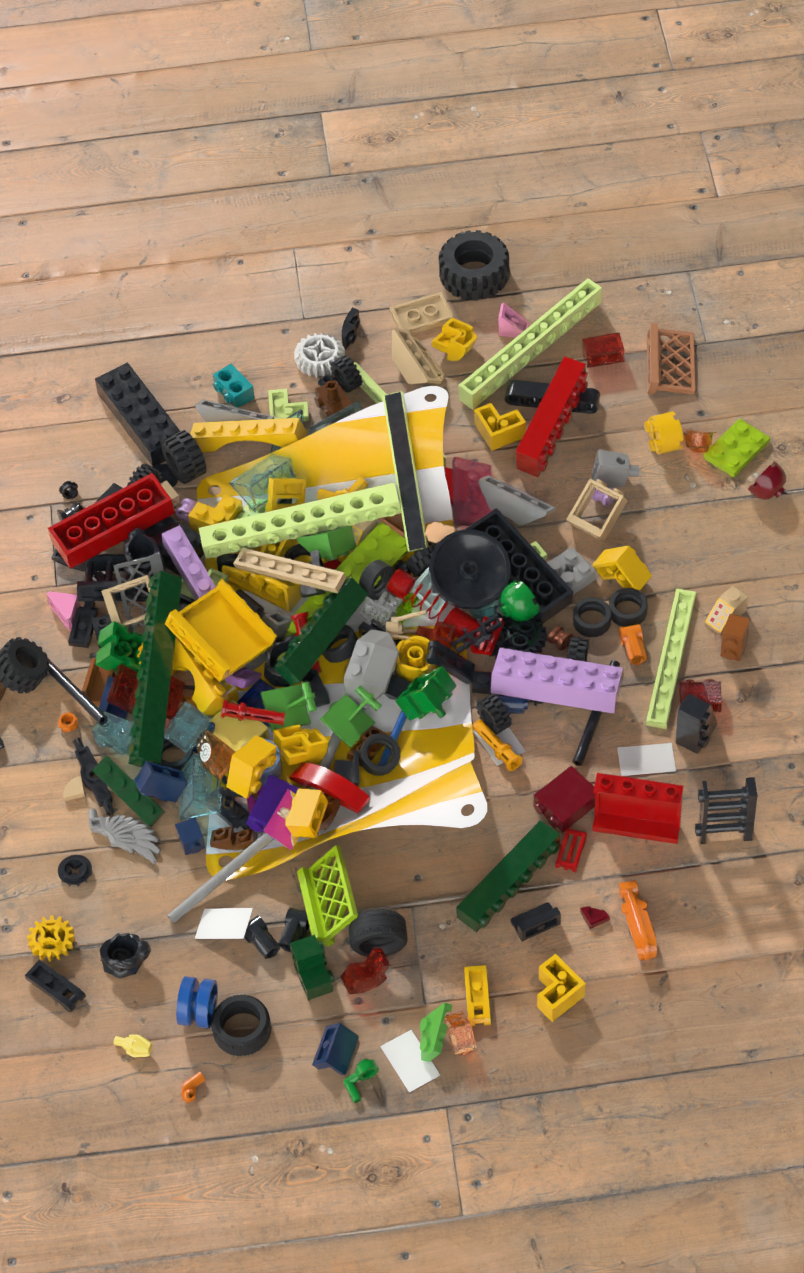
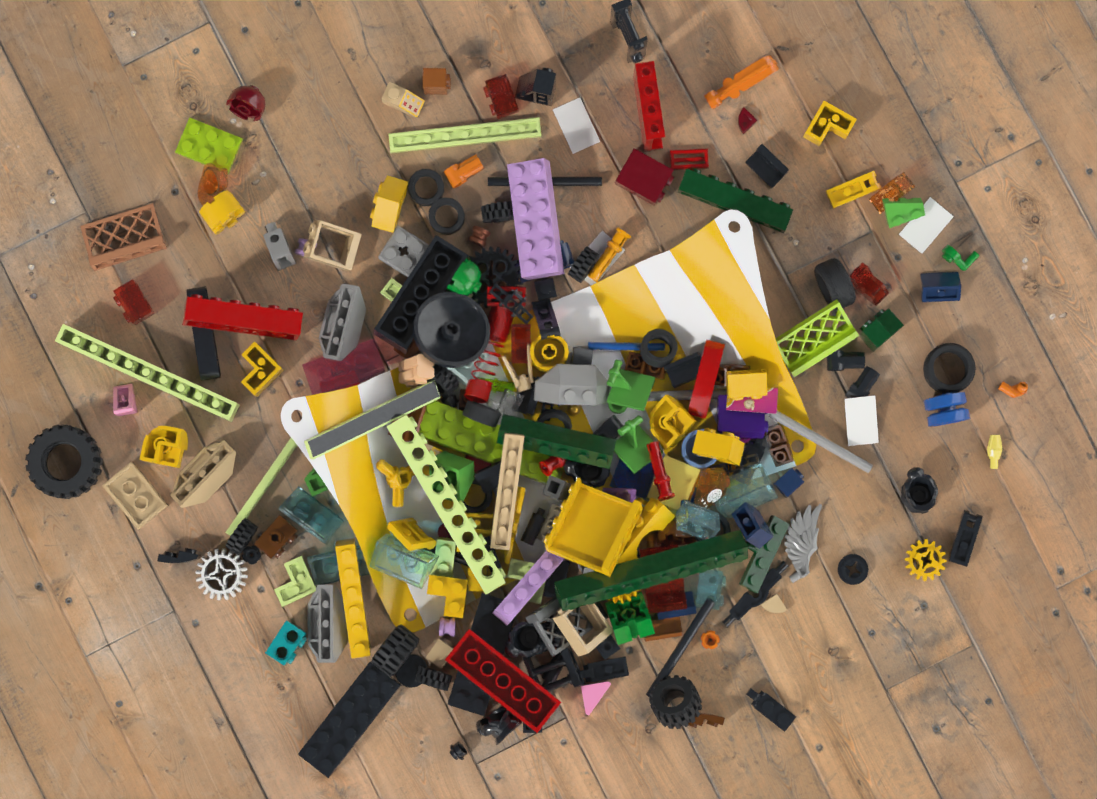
camera: 110 degrees left, 30 degrees up
(427, 694) = (587, 327): green brick -> none

